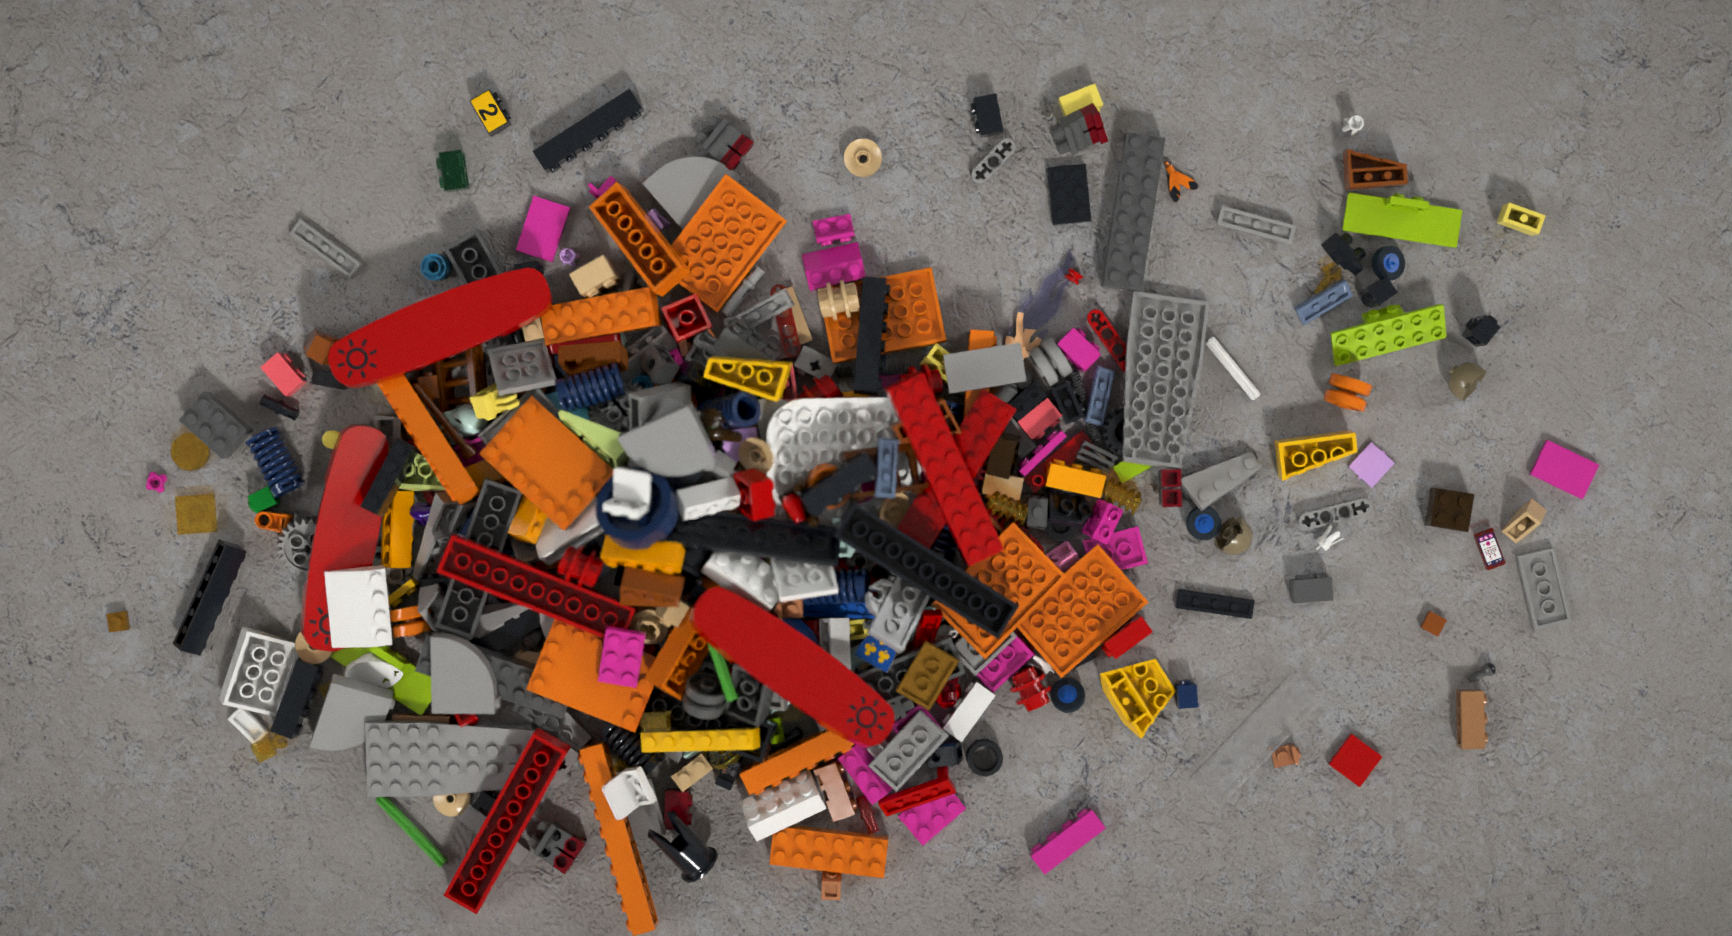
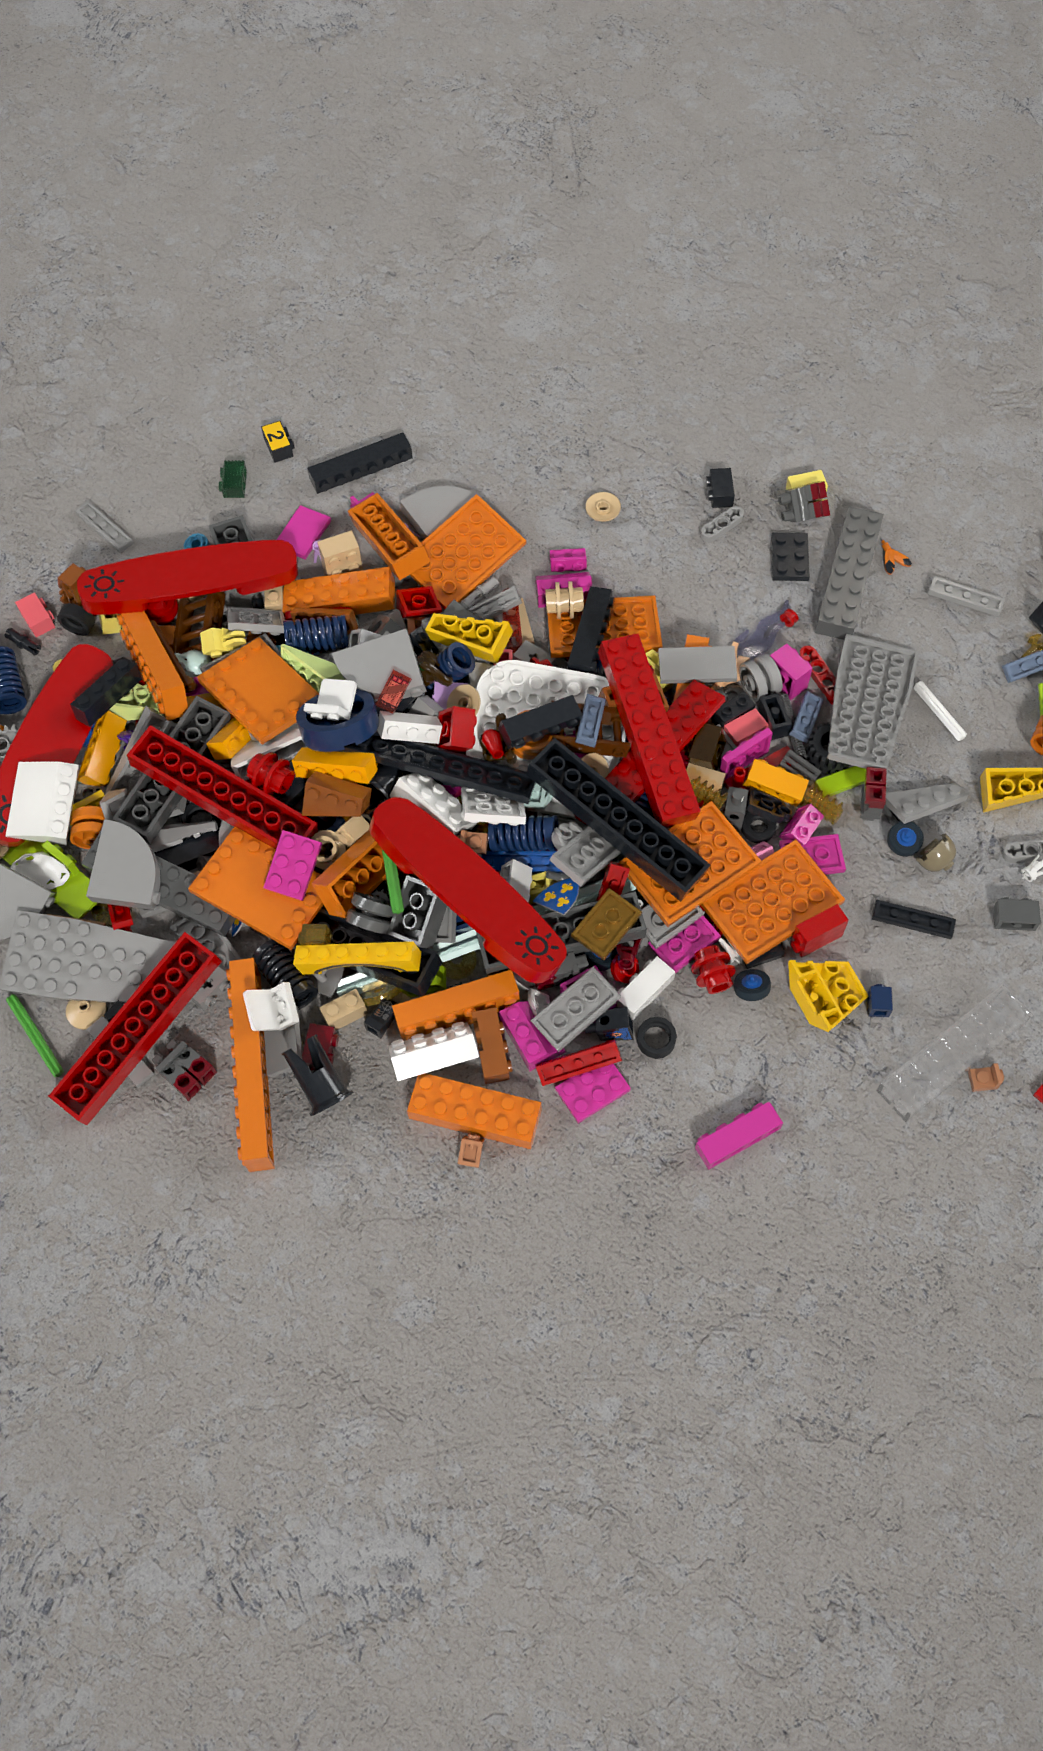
camera: 10 degrees right, 25 degrees down
(687, 474) = (393, 692): none -> clear red tile
(723, 136) = (481, 481): dark grey hips -> none
(867, 814) = (522, 1079): clear red pin -> none

